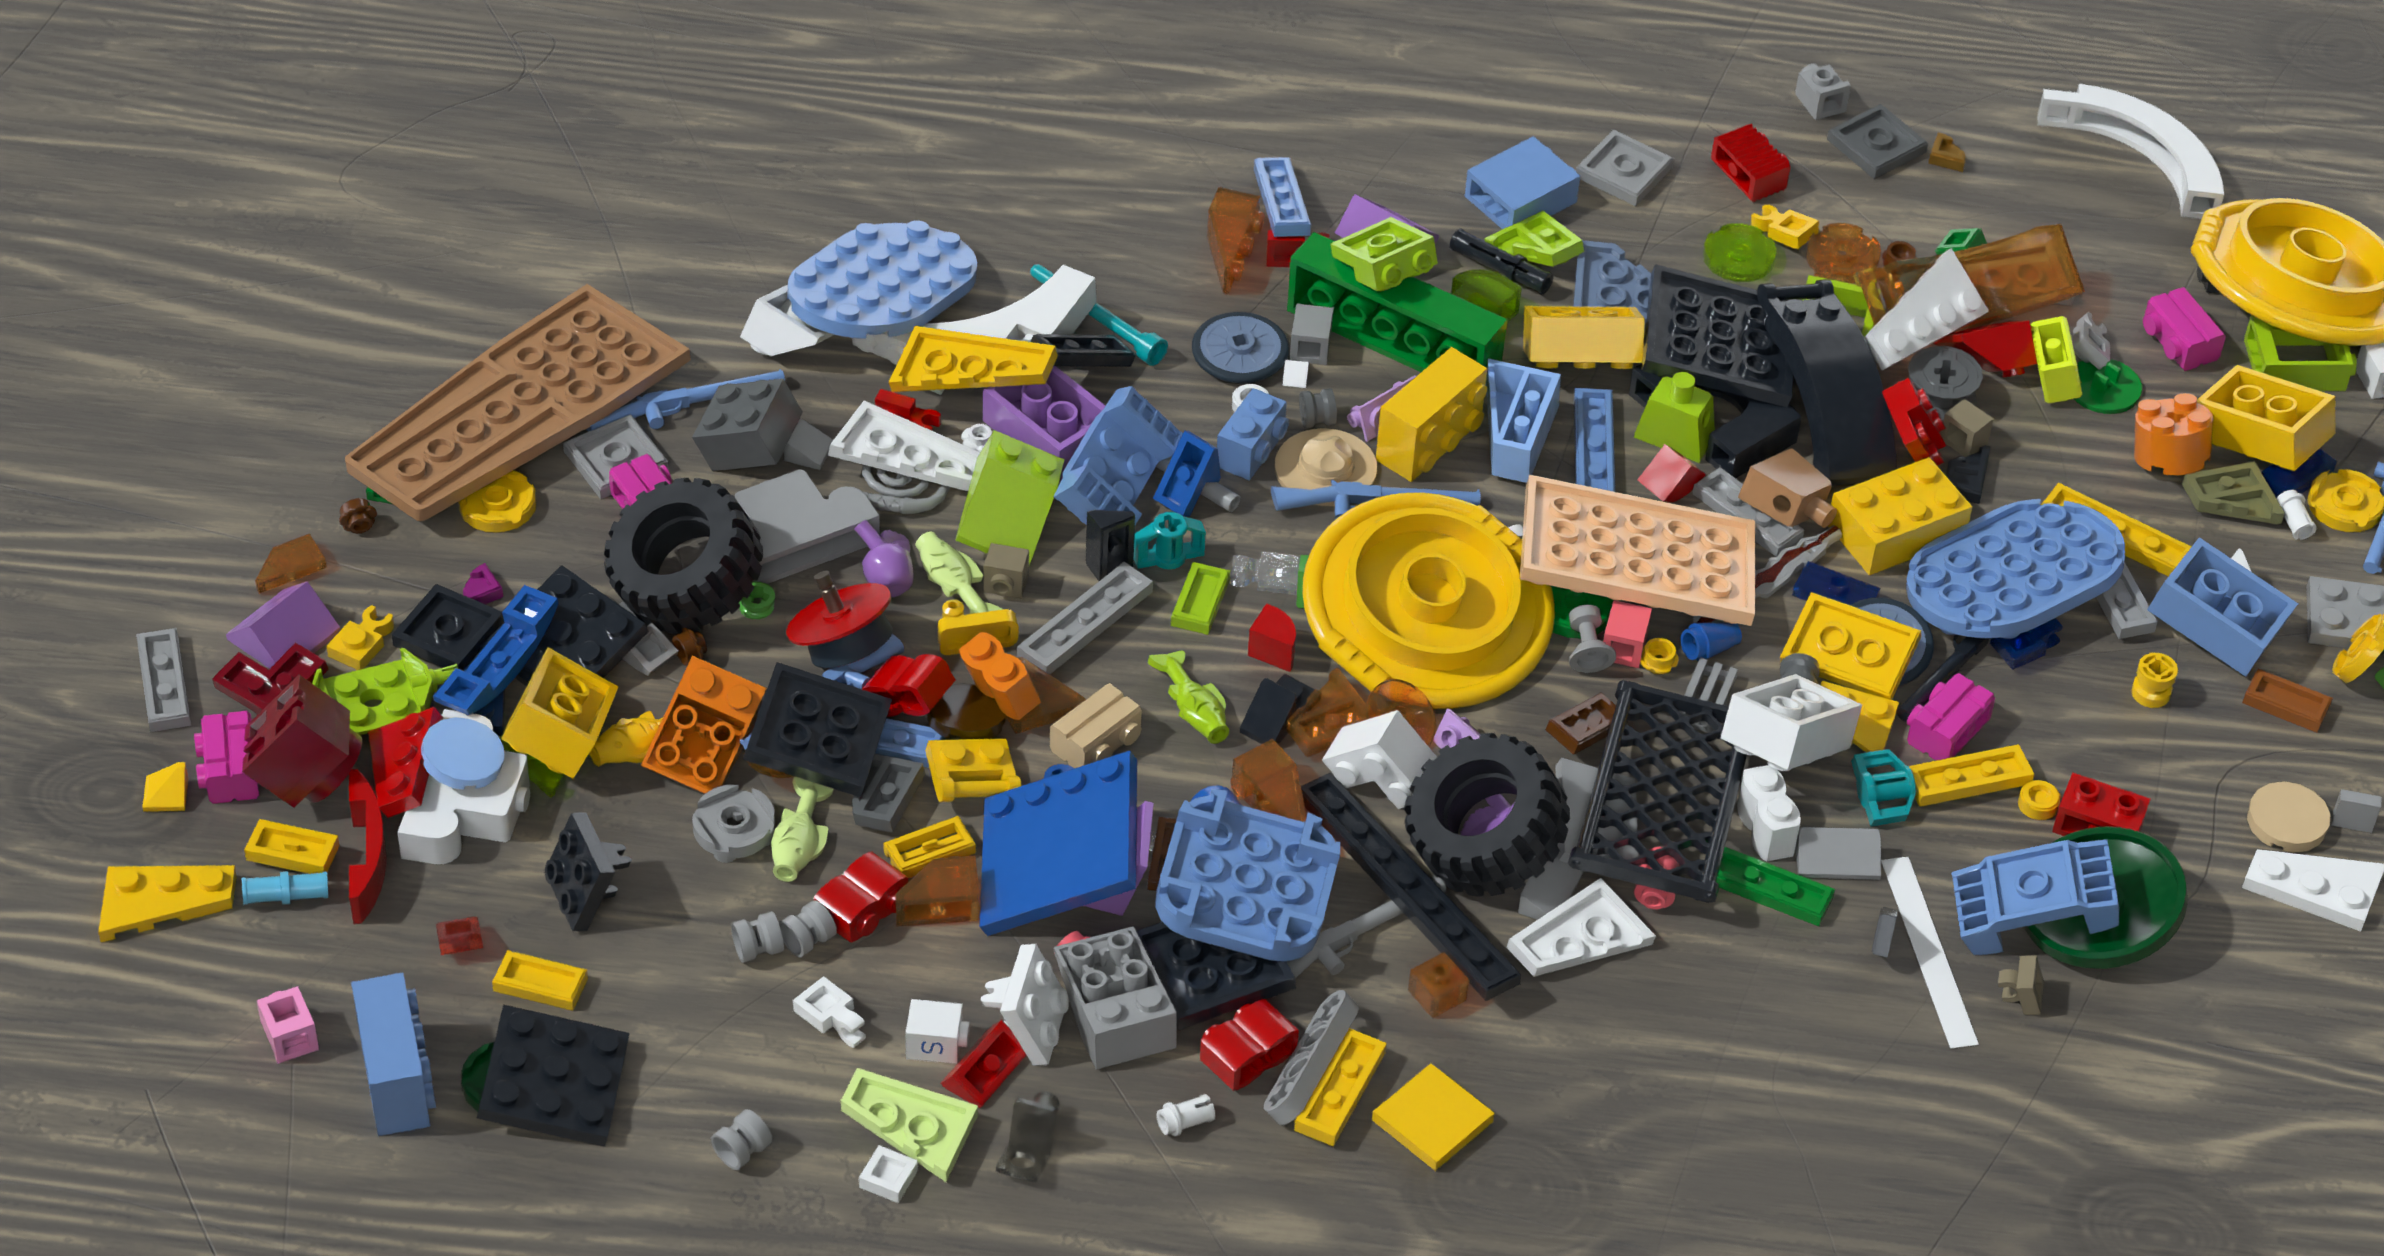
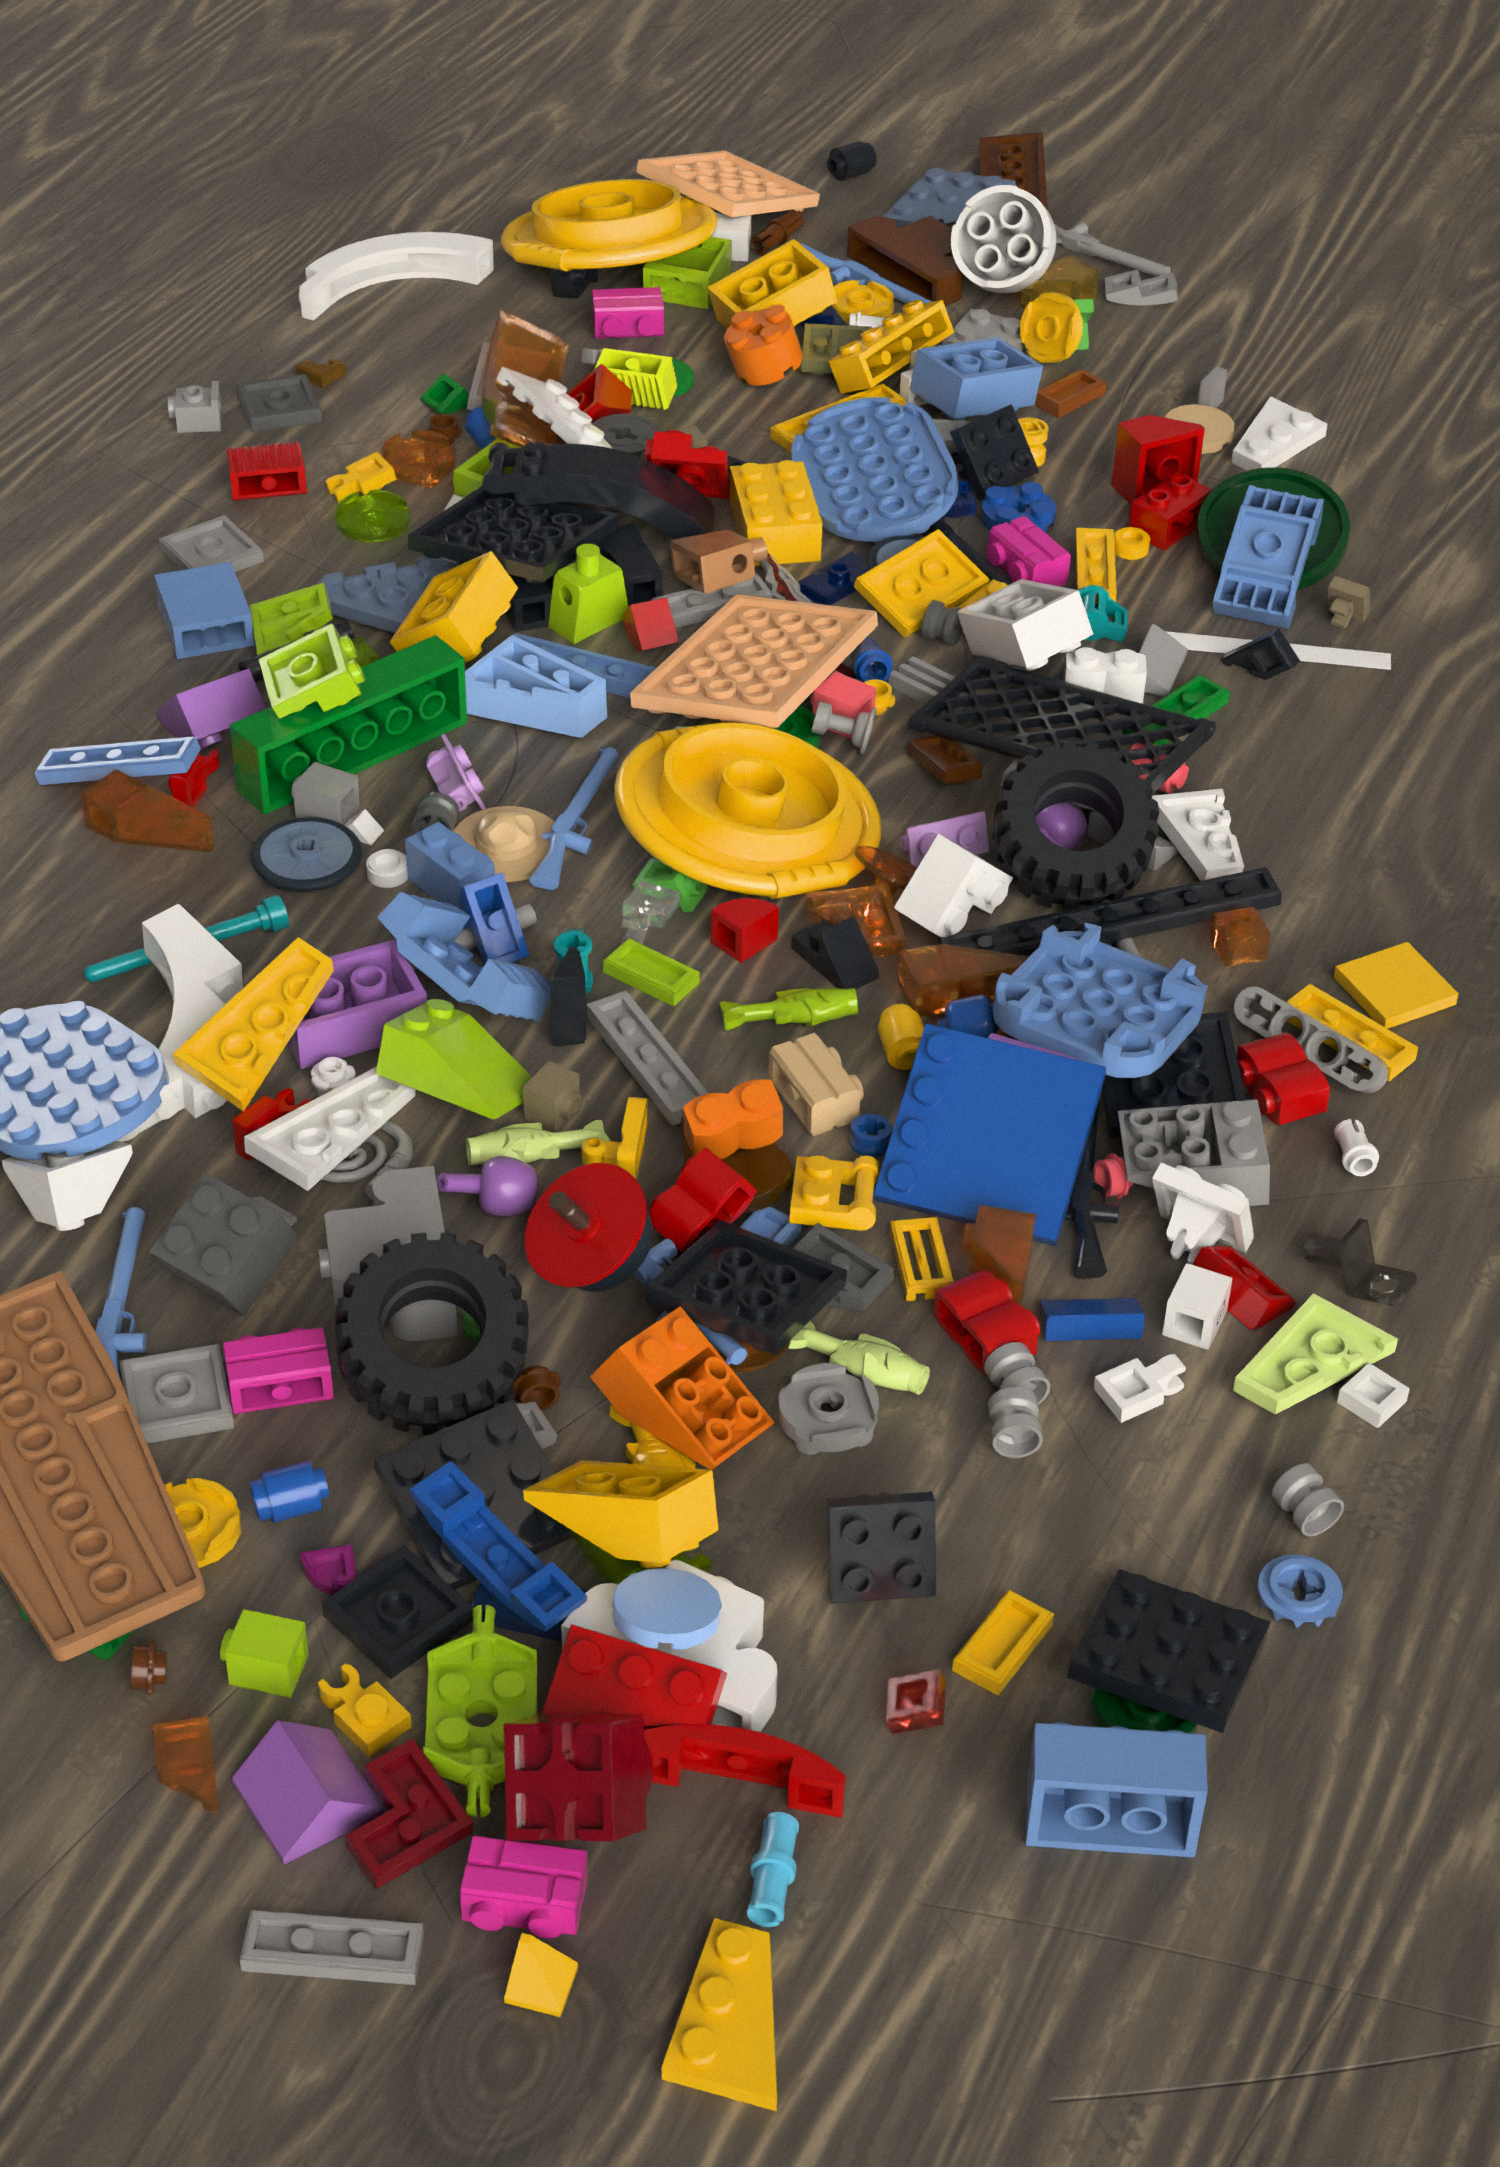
camera: 70 degrees left, 5 degrees down
(288, 1024) = (1010, 1903): bright pink brick -> none
(291, 847) = (707, 1848): yellow plate -> none
(385, 570) = (265, 1653): none -> lime brick
(534, 538) = (289, 1492): none -> blue brick
(666, 1145) = (1320, 1586): none -> medium blue gear
(903, 967) = (1091, 1319): none -> blue slope
(1044, 937) = (1083, 1212): none -> black piece
(1088, 350) = (259, 948): black tile -> none
(1181, 774) = (900, 1035): none -> yellow brick
(1431, 414) = (506, 736): yellow brick -> none
(2040, 683) = (1013, 502): none -> blue plate
(2099, 650) = (993, 451): none -> black plate
(2163, 768) = (1152, 451): none -> red slope
(2261, 536) = (889, 347): none -> yellow brick

